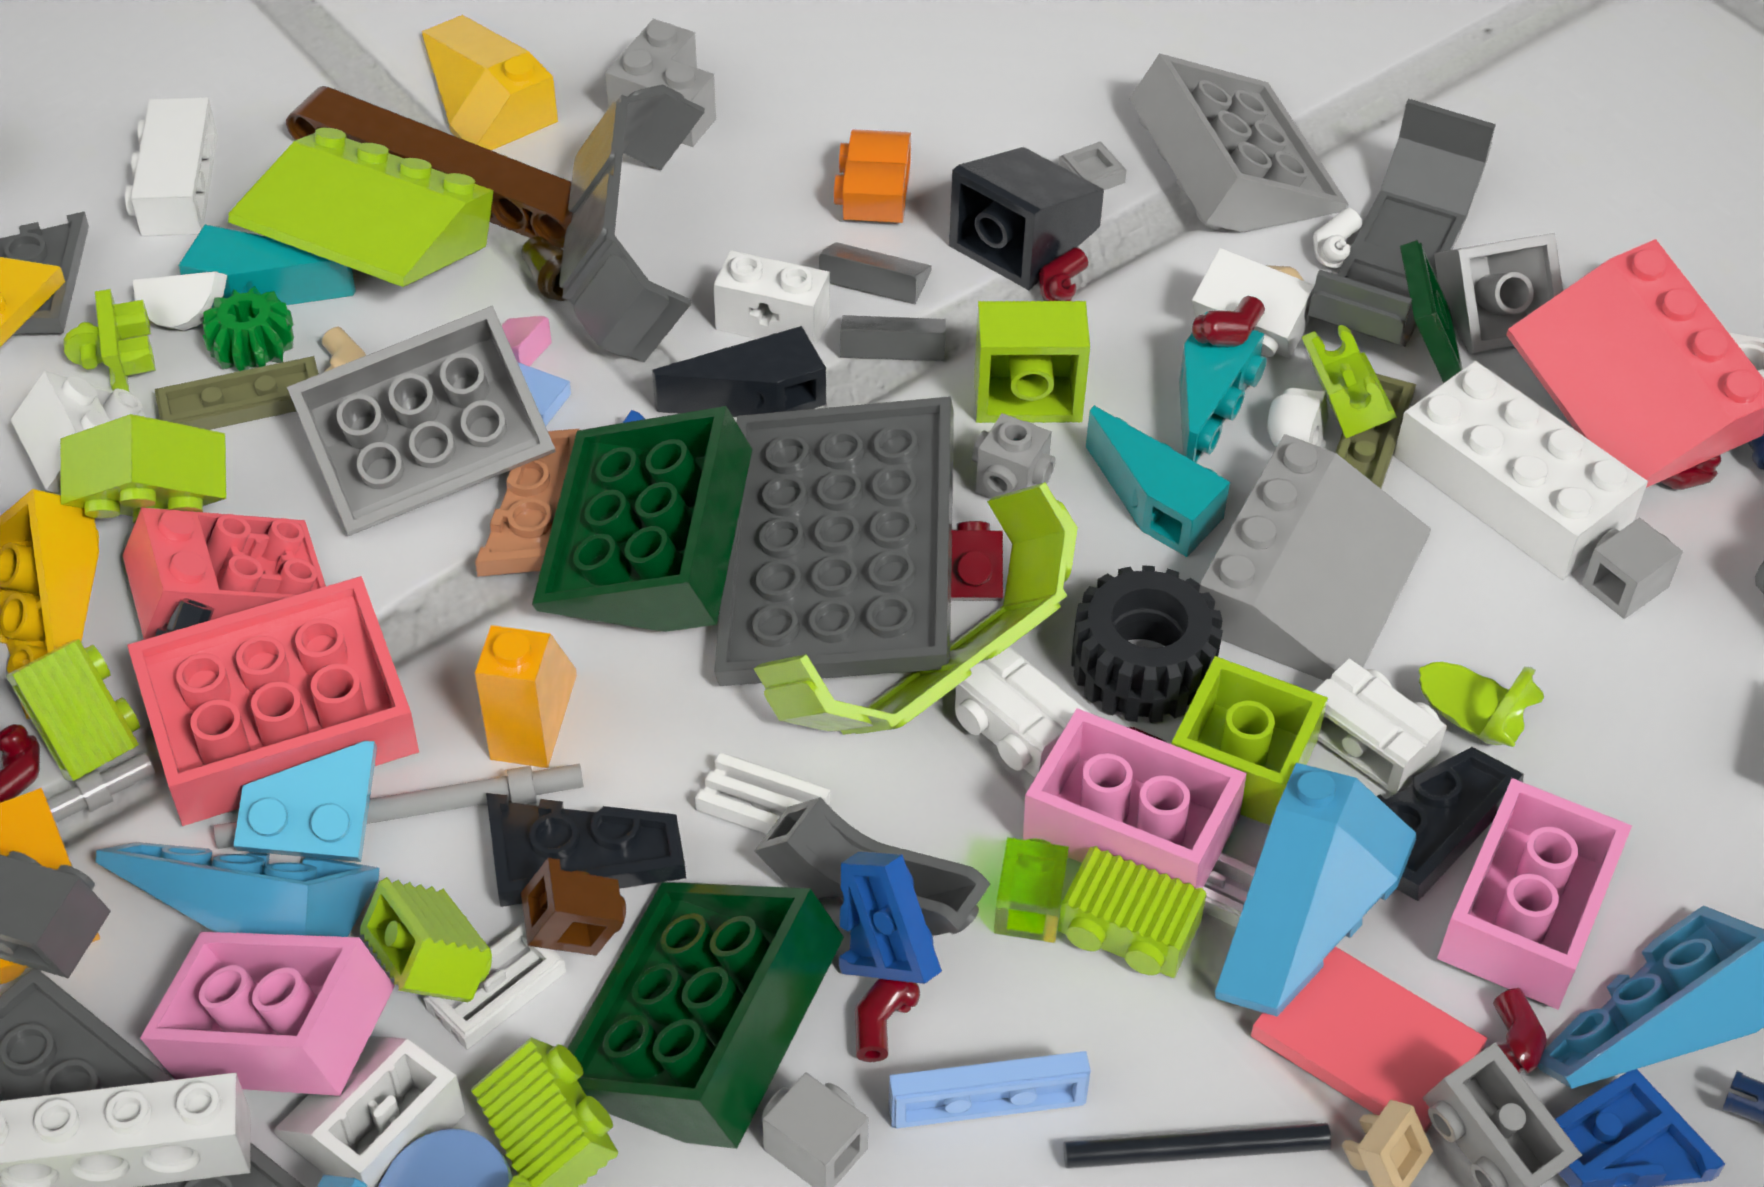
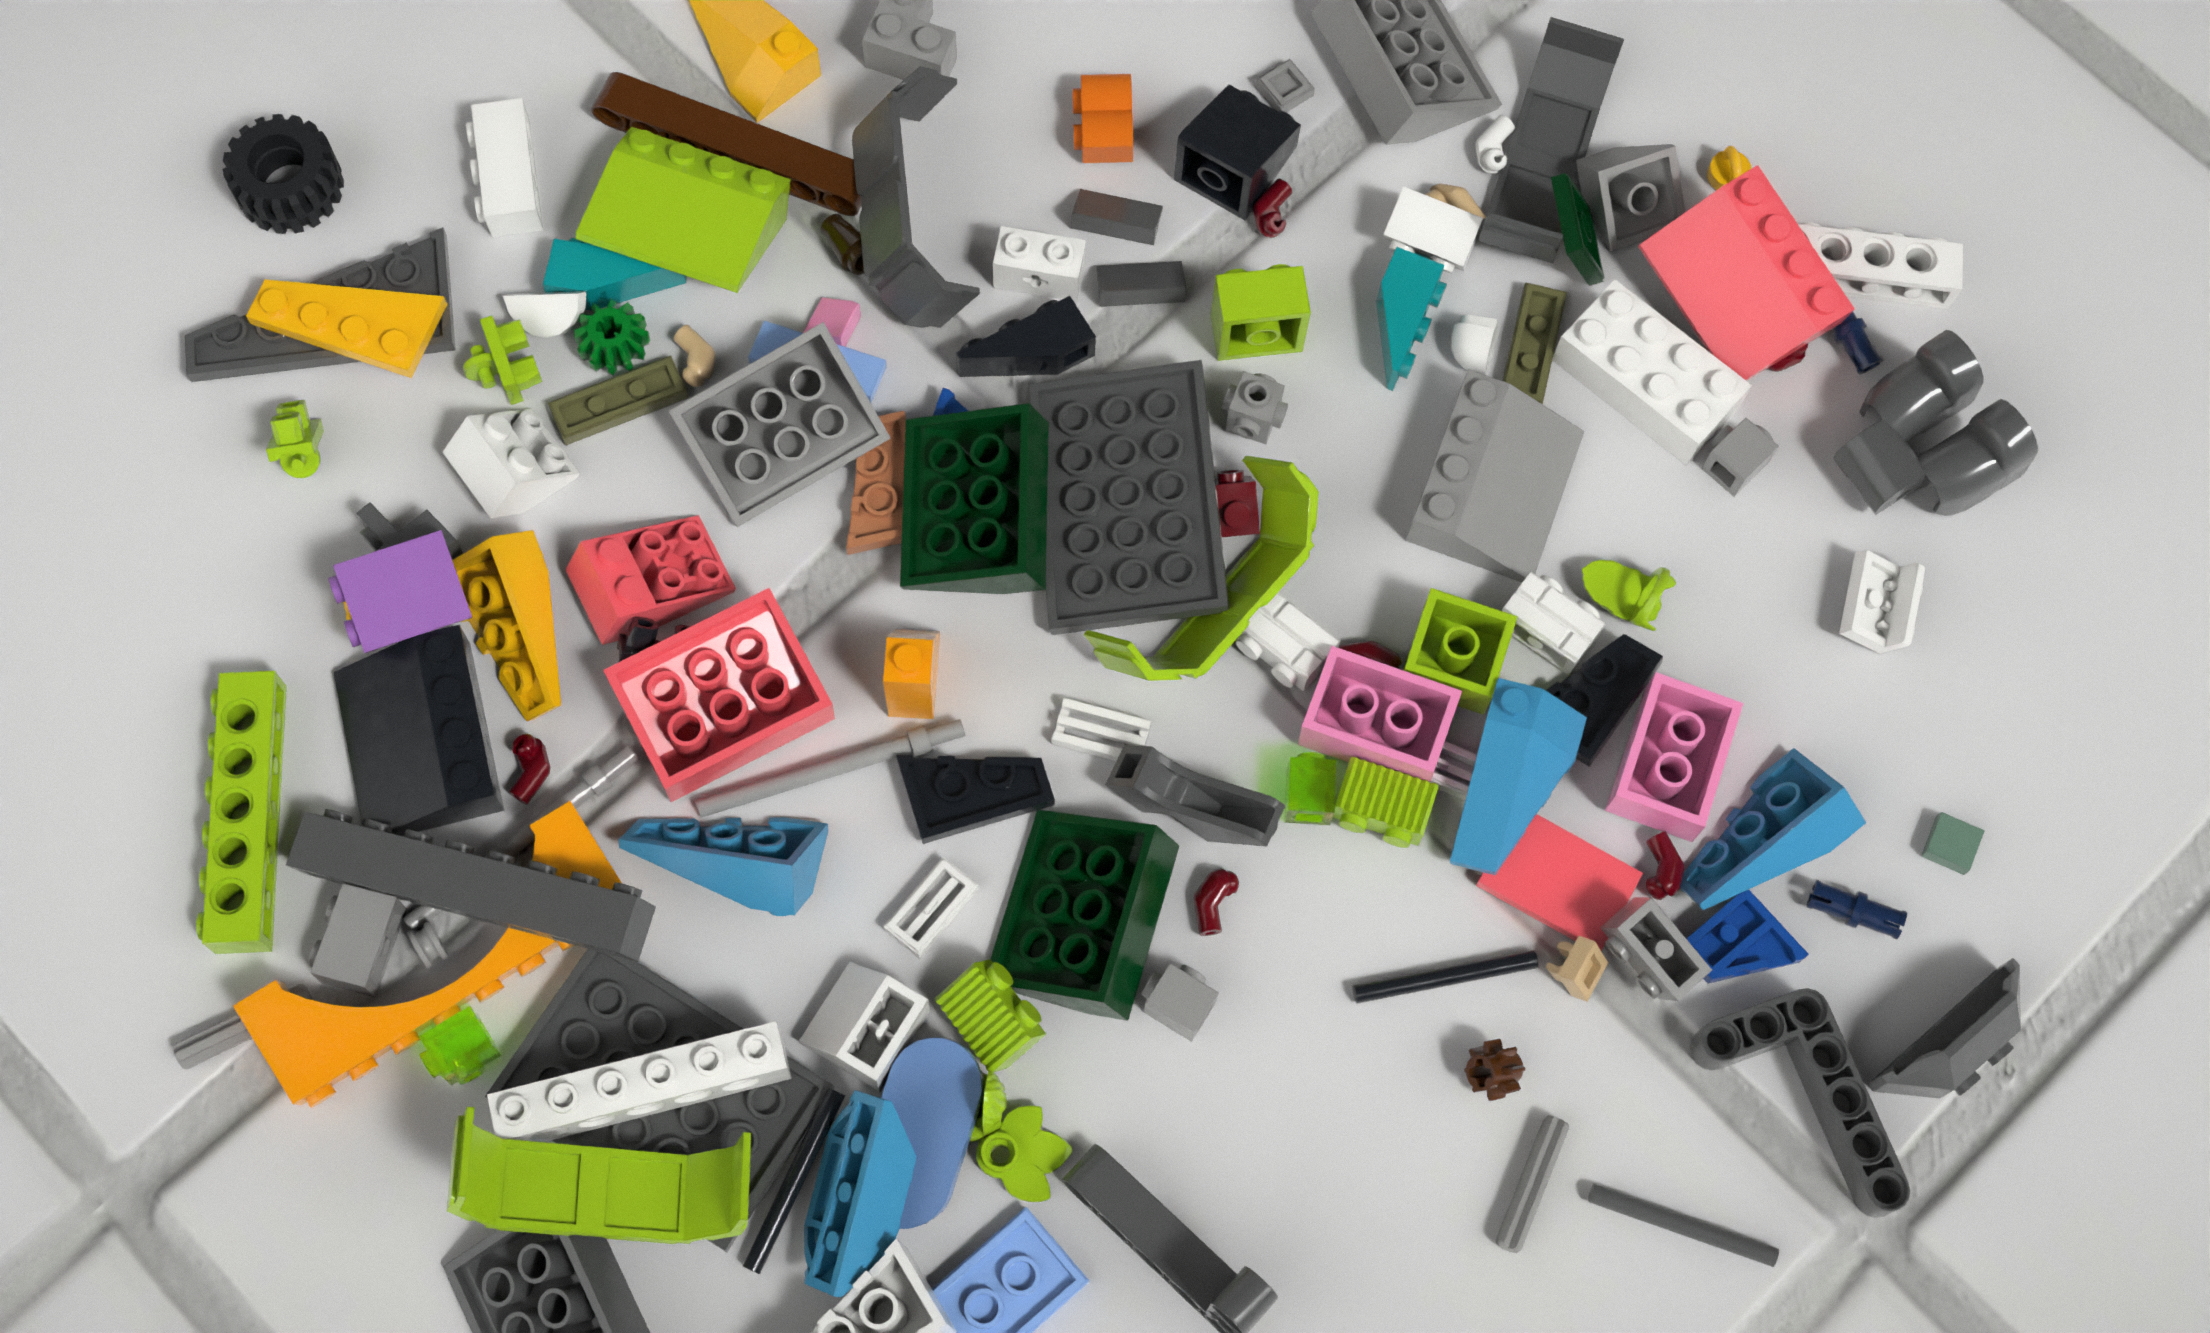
camera: 10 degrees left, 20 degrees up
(75, 709) = (571, 722): lime brick -> none
(142, 465) = (573, 506): lime brick -> none
(270, 1010) = (781, 962): bright pink brick -> none
(310, 808) = (768, 783): medium azure wing -> none
(425, 941) = (880, 890): lime brick -> none
(571, 909) = (978, 847): reddish brown brick -> none
(884, 921) = (1212, 844): blue wing -> none
(988, 1089) = (1297, 955): light blue tile -> none
(1148, 608) = (1380, 537): black tyre -> none
(1158, 486) = (1371, 418): teal slope -> none
(1229, 327) = (1417, 267): dark red arm -> none
(1349, 383) = (1515, 304): lime hinge -> none

